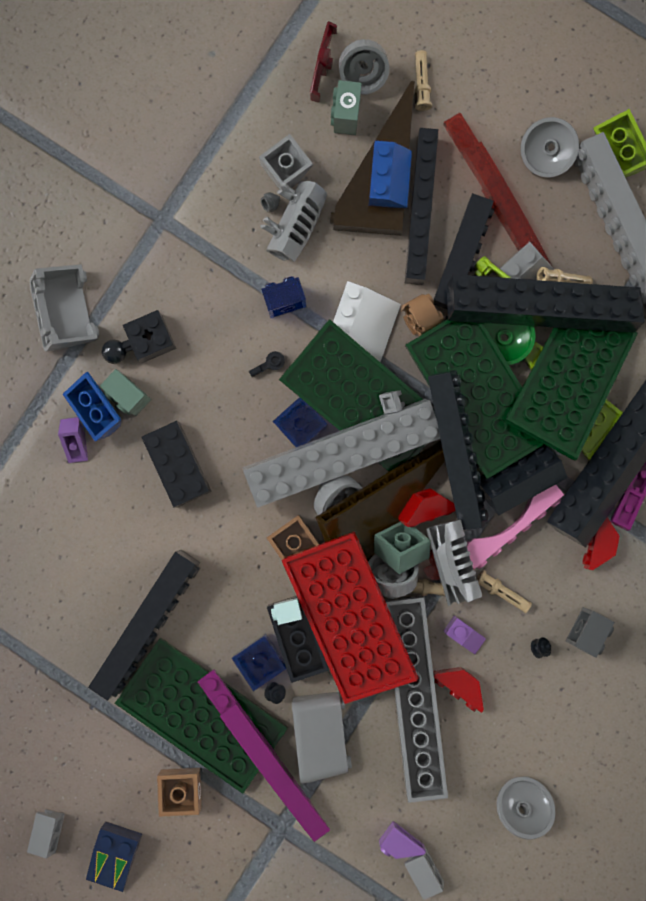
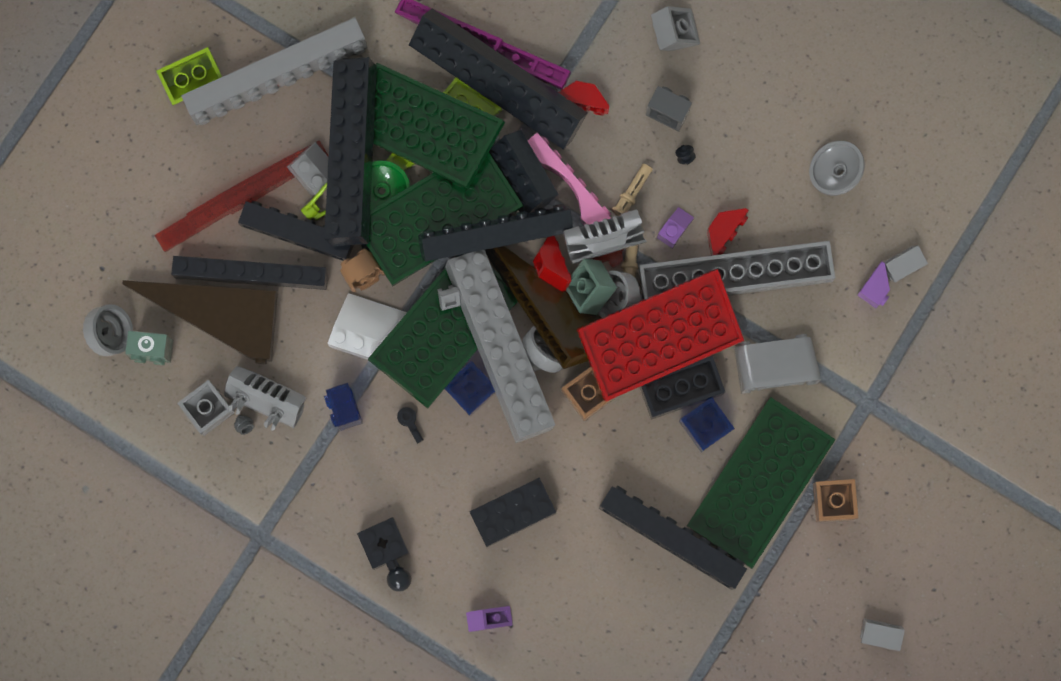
camera: 95 degrees left, 5 degrees down
(61, 307) = (354, 636): light grey windscreen -> none
(92, 407) = (456, 596): blue slope -> none
(113, 856) = (902, 566): dark blue slope -> none
(125, 392) = (442, 564): sand green brick -> none
(263, 755) = (796, 418): magenta slope -> none
(275, 693) = (736, 410): black wheel -> none
(286, 611) = (655, 395): light aqua brick -> none
(323, 61) = (100, 371): dark red plate -> none
(390, 175) = (221, 303): blue slope -> none
(422, 88) = (96, 275): tan pin -> none
(537, 154) = (200, 156): light grey dish -> none
(550, 275) = (322, 138): tan pin -> none

